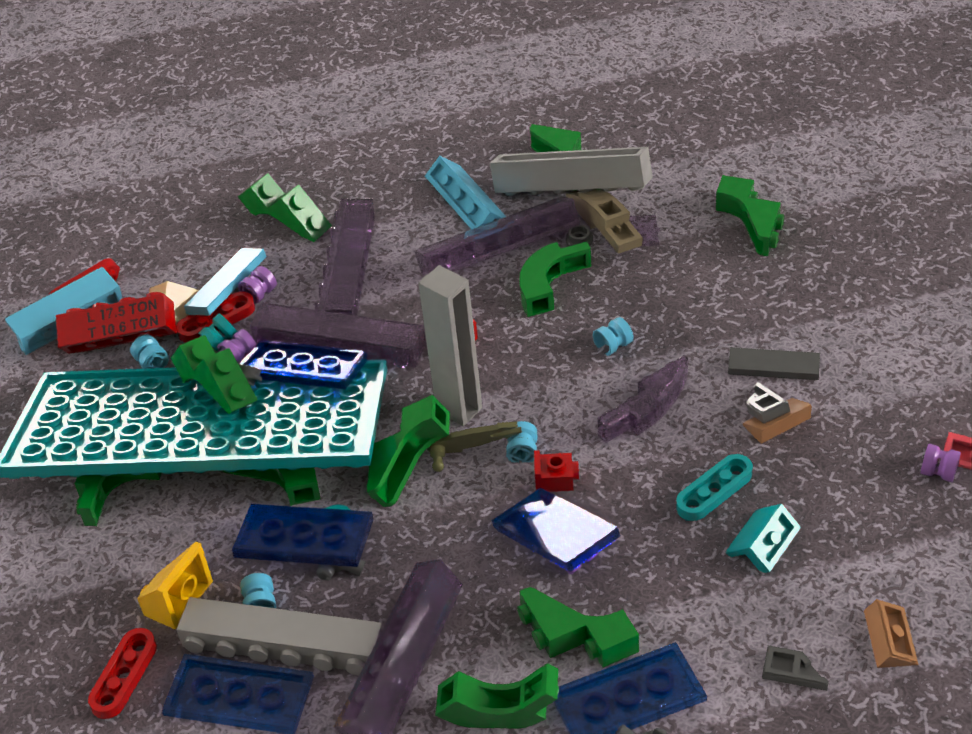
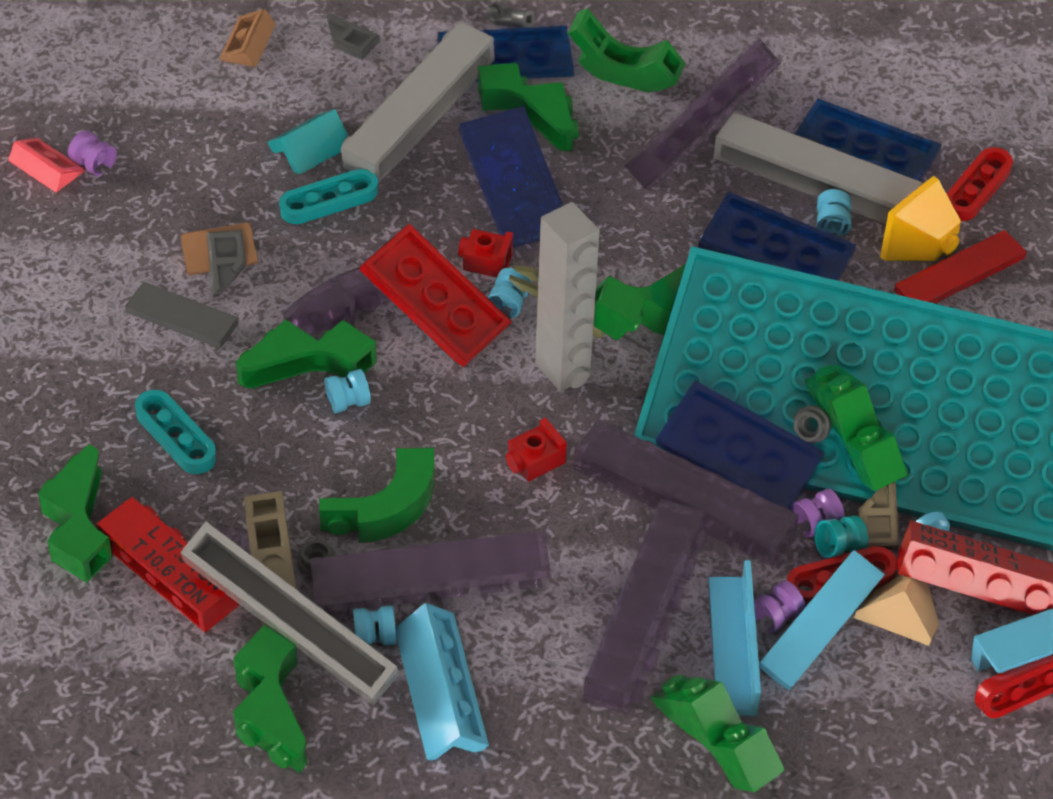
camera: 170 degrees left, 5 degrees up
(124, 591) = (962, 269): none -> red tile
(284, 263) = (735, 639): none -> medium azure panel
(524, 201) = (365, 625): none -> medium azure wheel
(580, 408) = (435, 295): none -> red tile
(634, 359) = (292, 352): none -> green arch
(677, 204) = (154, 555): none -> red brick
(678, 592) = (418, 101): none -> light grey brick
(736, 285) = (171, 420): none -> teal plate

